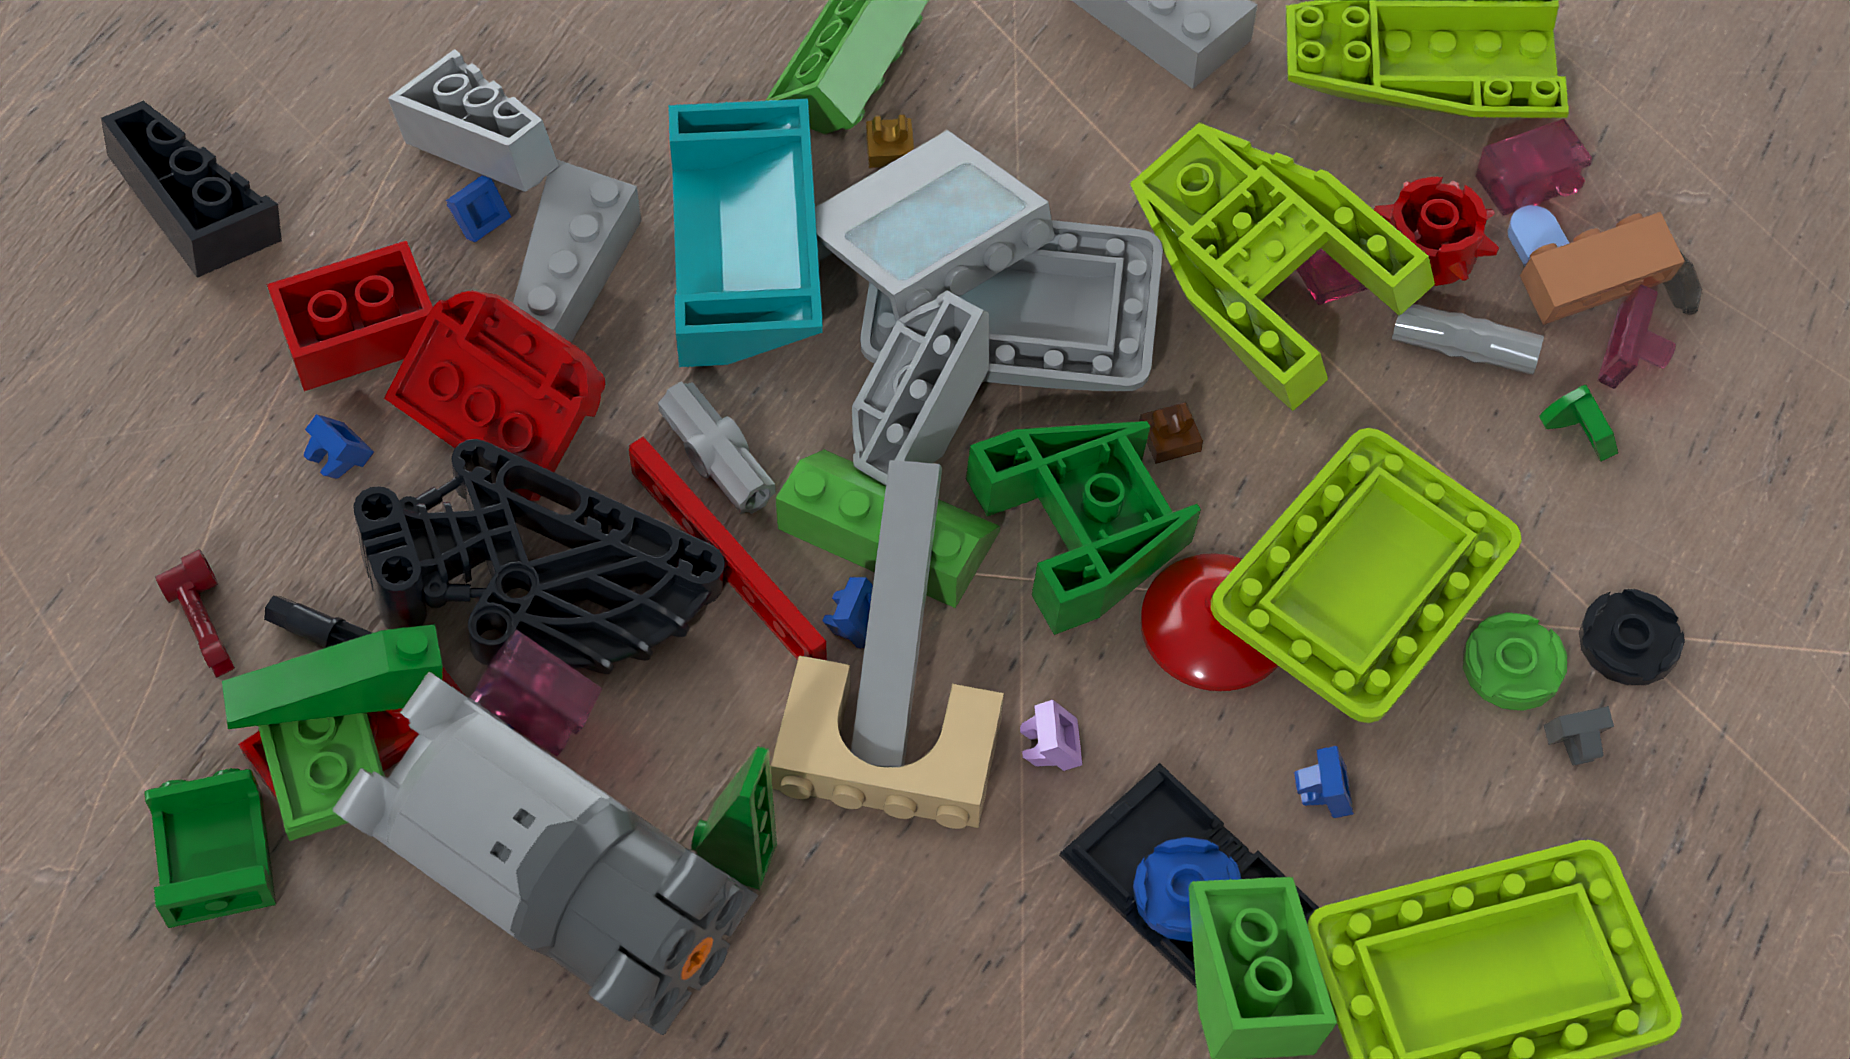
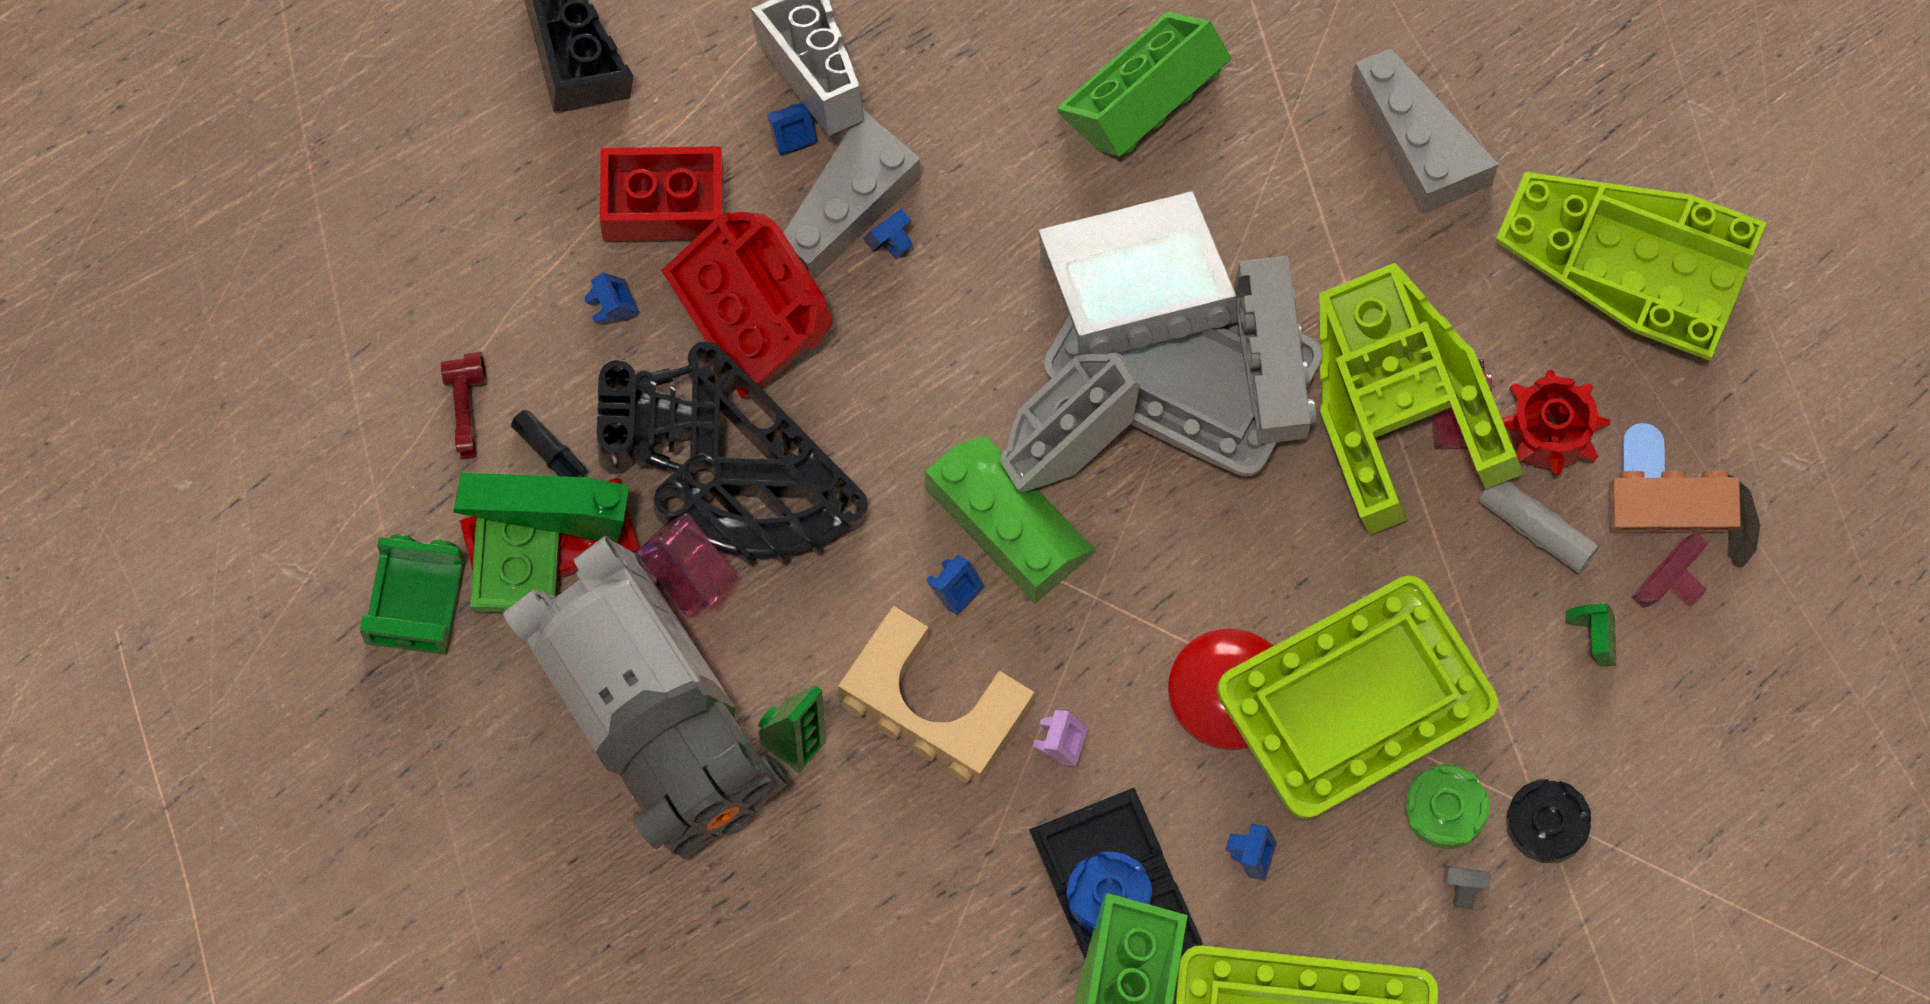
camera: 20 degrees right, 10 degrees up
(633, 279) = (891, 234): none -> blue tile
(716, 447) = (901, 405): light grey piece -> none
(740, 569) = (876, 508): red tile -> none
(743, 229) = (992, 223): teal slope -> none
(888, 140) = (1146, 179): pearl gold tile -> none
(896, 613) = (978, 599): light grey tile -> none
(1099, 504) = (1173, 561): green wedge -> none
(1111, 243) = (1273, 350): none -> light grey wedge
(1172, 433) = (1263, 518): reddish brown tile -> none
(1533, 167) = (1667, 391): clear pink brick -> none

